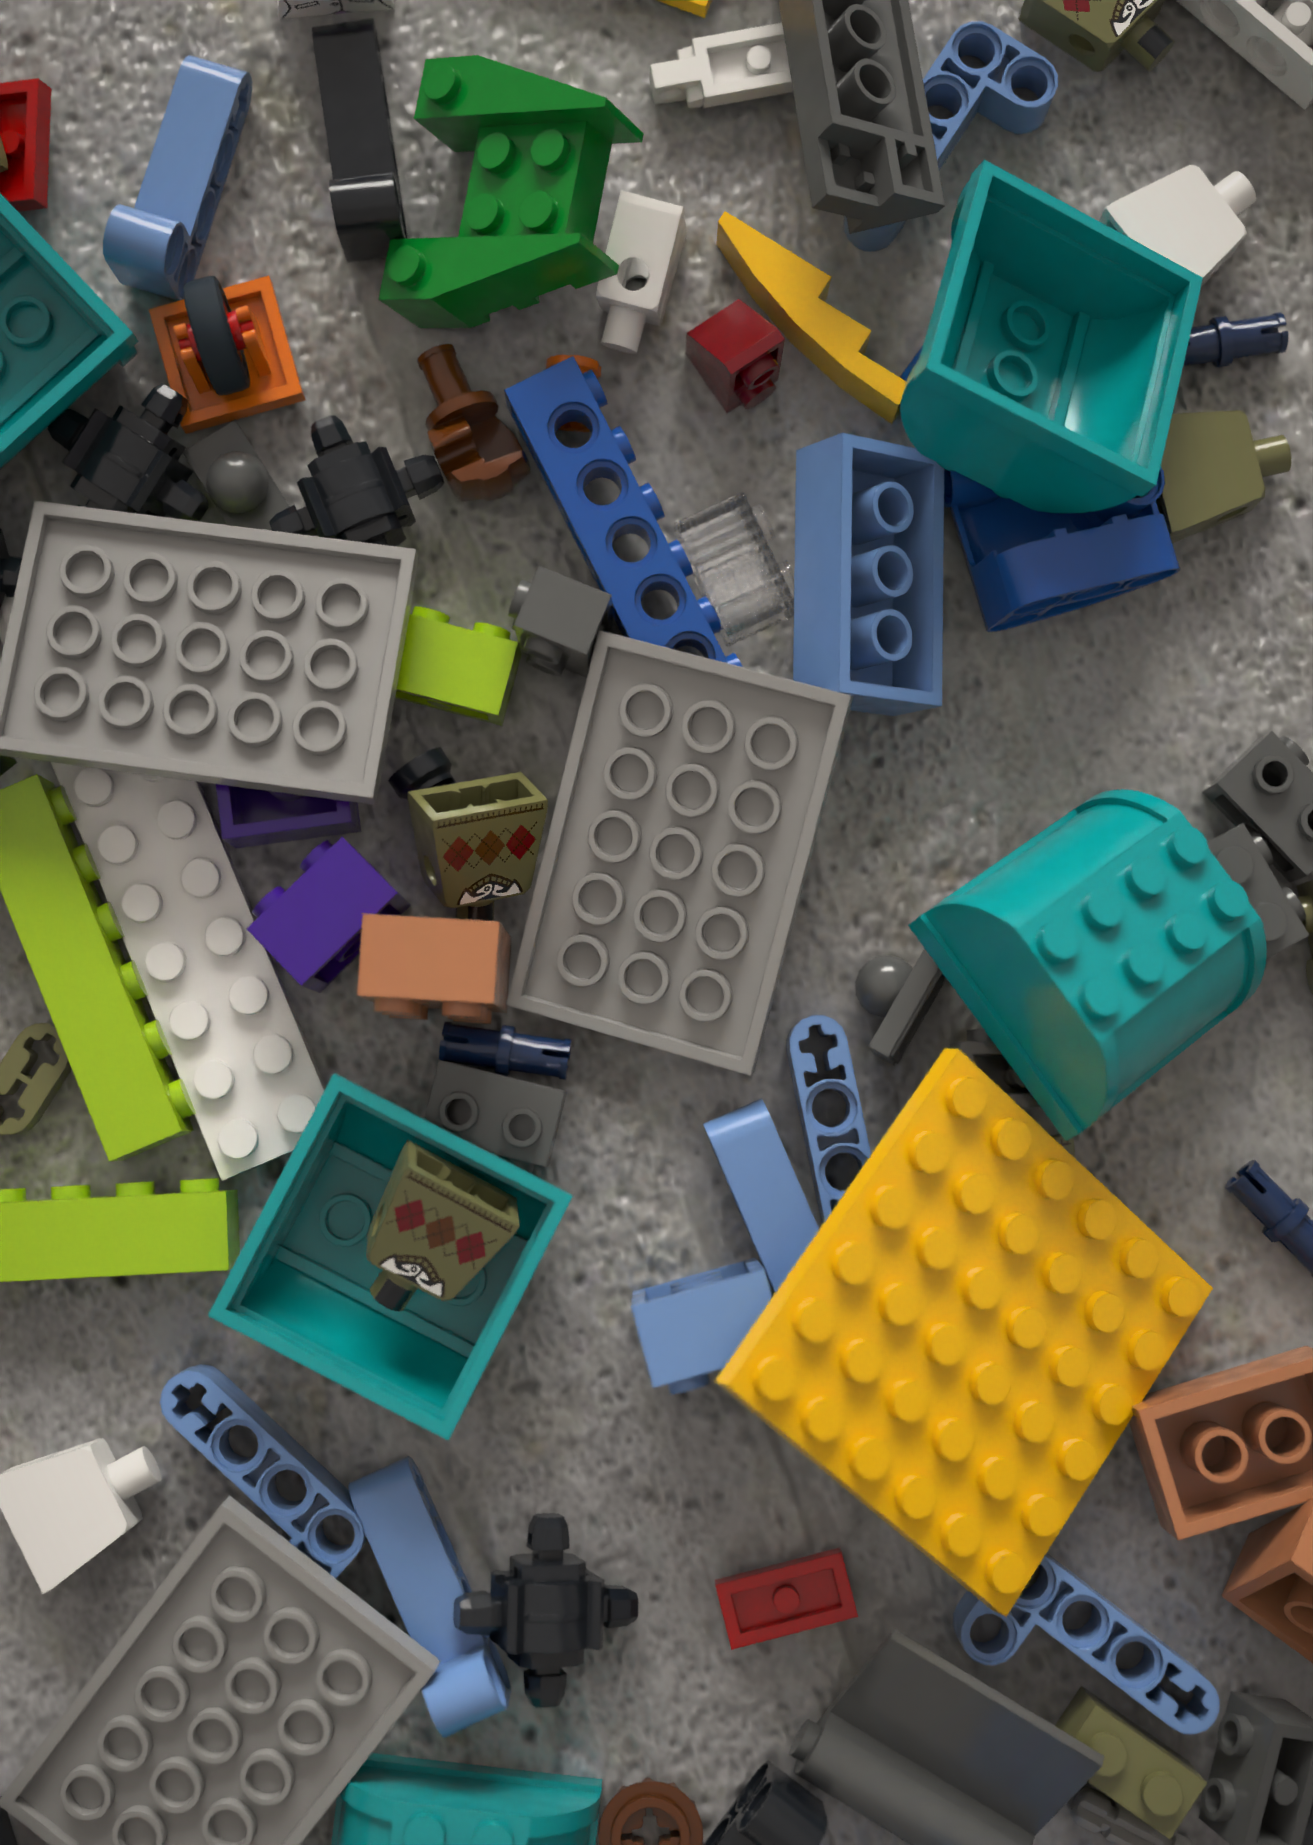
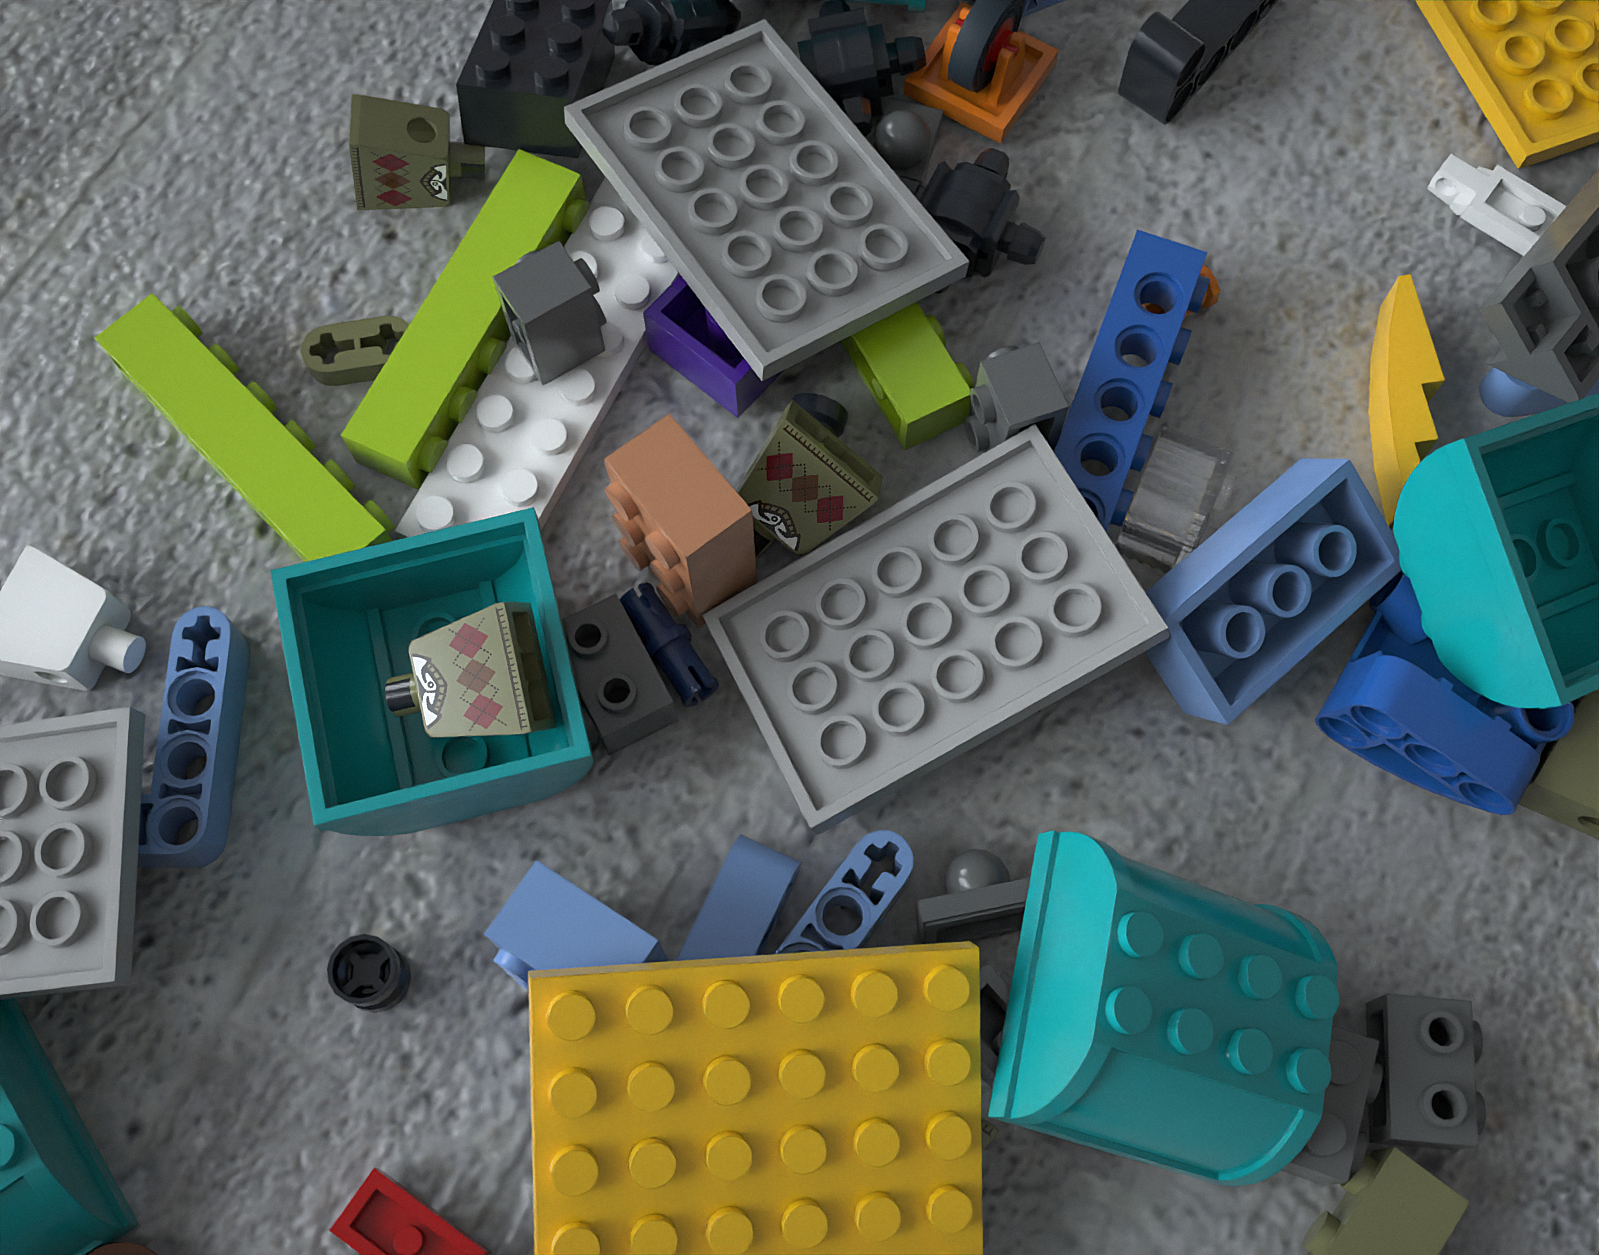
camera: 50 degrees right, 15 degrees down
(159, 910) = (552, 310): none -> dark grey brick
(319, 918) = (629, 400): dark purple brick -> none
(424, 1584) = (185, 951): medium blue beam -> none
(467, 438) = (1077, 260): reddish brown piece -> none
(527, 196) = (1311, 125): green wedge -> none
(546, 1610) = (242, 1044): black piece -> none
(569, 1491) = (359, 964): none -> black wheel
(646, 245) = (1314, 254): white torso -> none
(737, 355) = (1321, 372): dark red slope -> none

